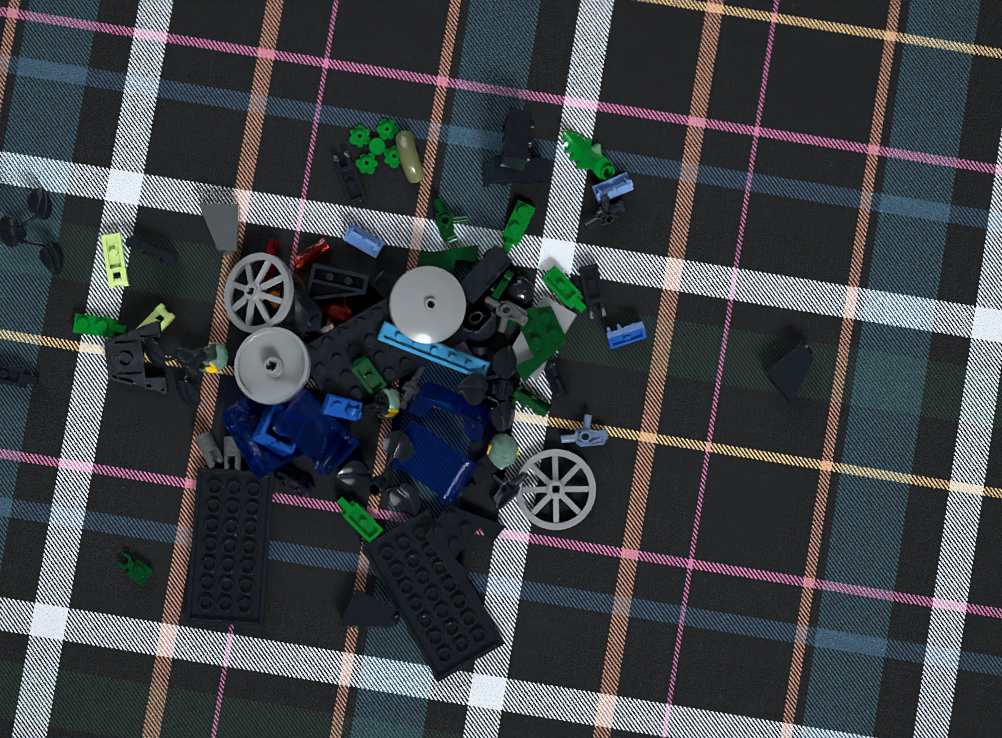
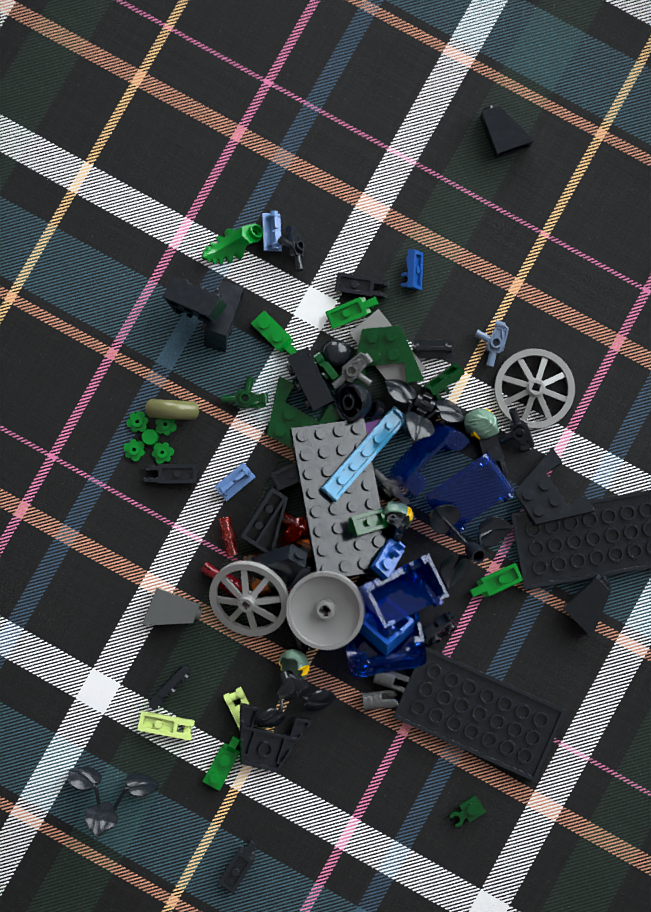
camera: 65 degrees left, 0 degrees up
(410, 309) = (316, 458): light grey dish -> none

